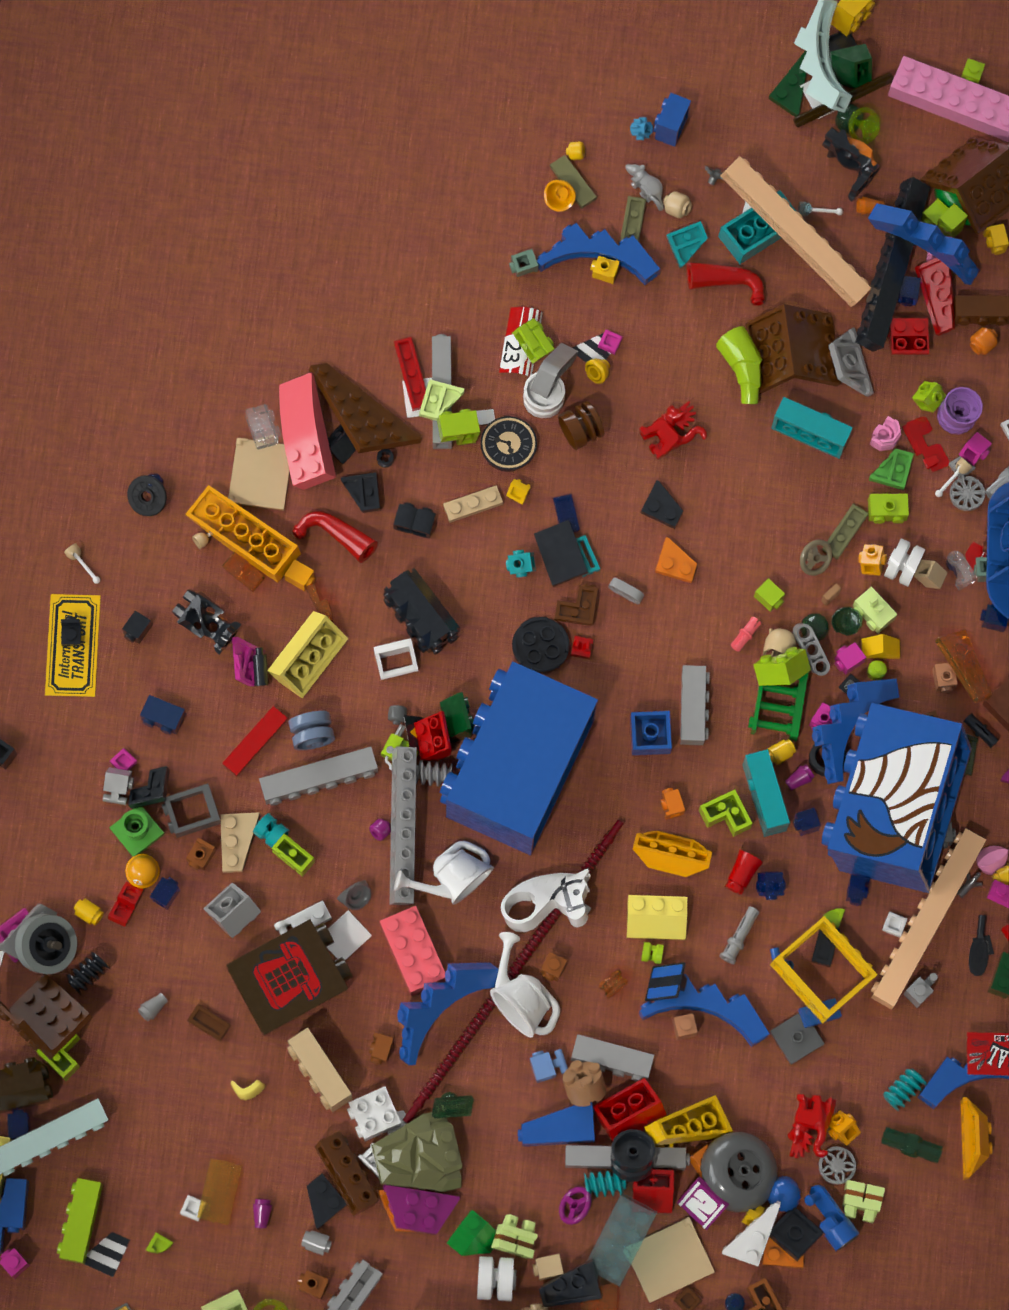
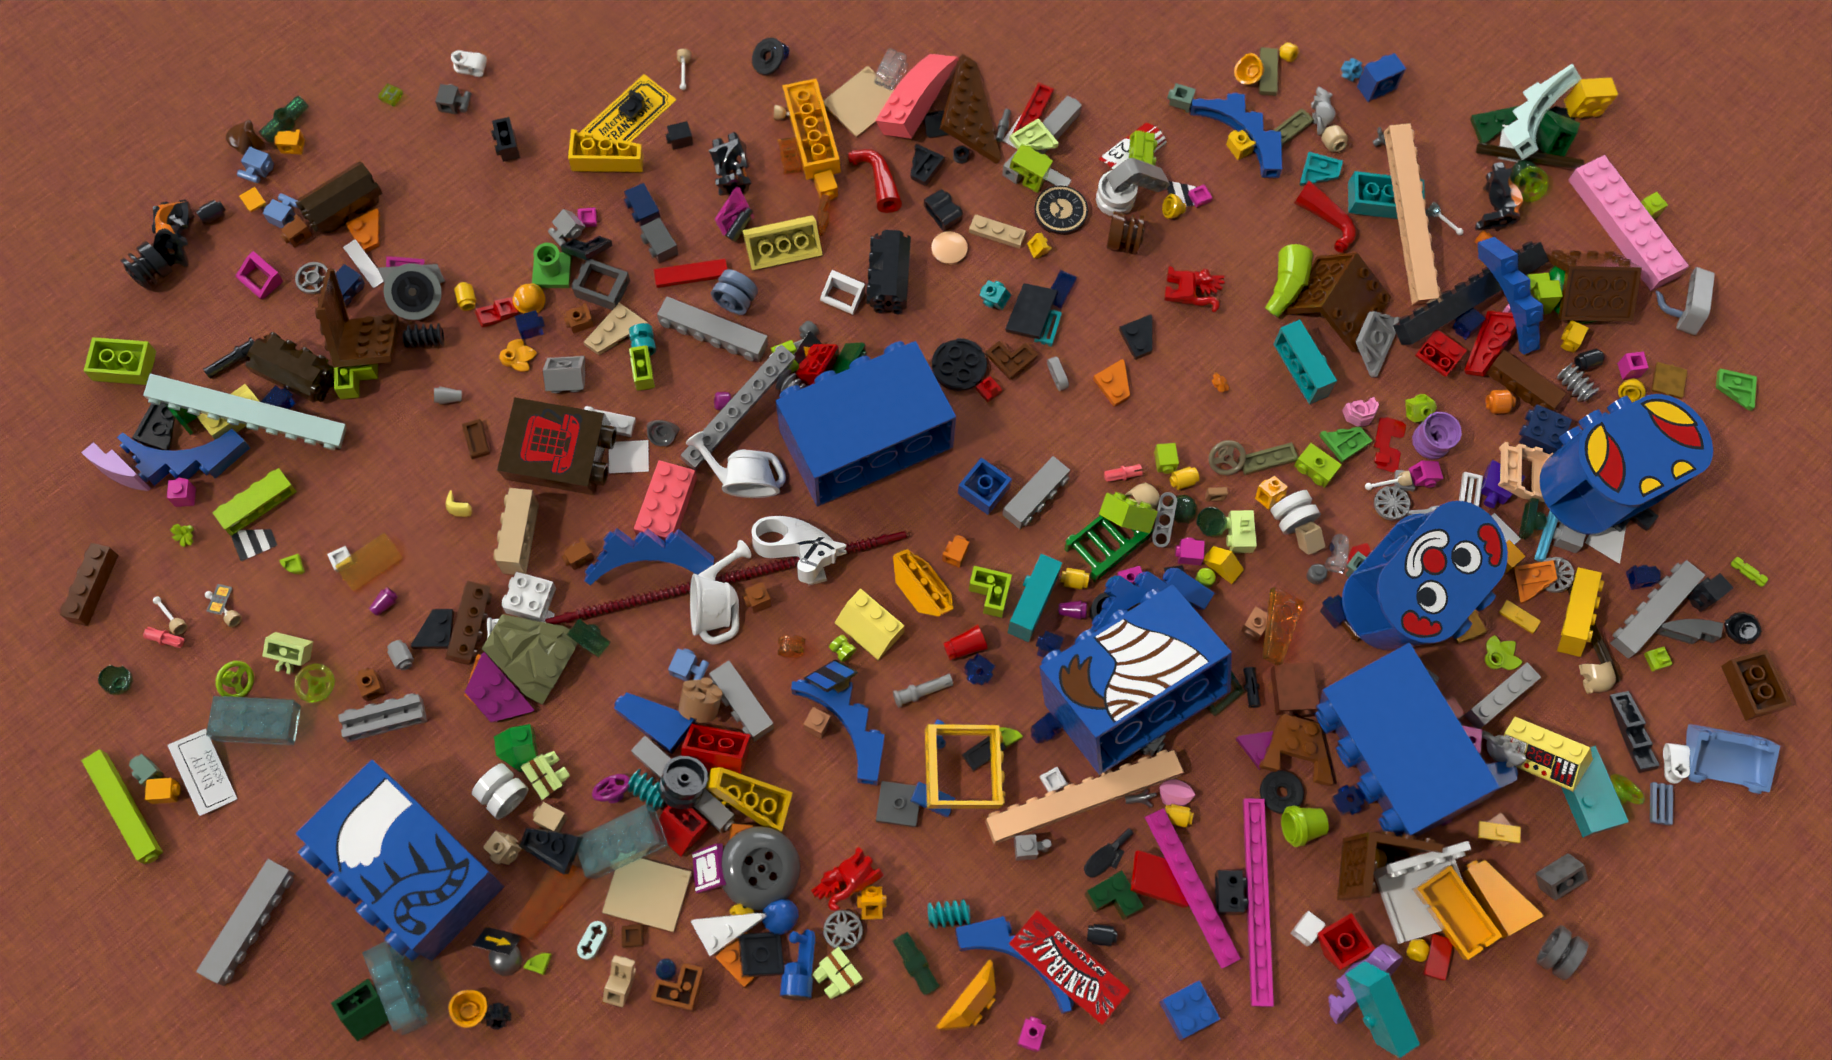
camera: 40 degrees right, 5 degrees down
(47, 1294) = (183, 534): none -> lime plant
(89, 696) = (603, 154): none -> yellow wedge
(178, 923) = (519, 355): none -> light orange plate
(204, 734) = (659, 240): none -> dark grey brick
(397, 403) = (1003, 125): none -> dark grey bar
(446, 549) = (949, 247): none -> light nougat dish
(757, 496) = (1220, 383): none -> orange plant
(796, 600) = (1184, 478): none -> yellow brick
(956, 598) = (1316, 574): none -> dark grey piece

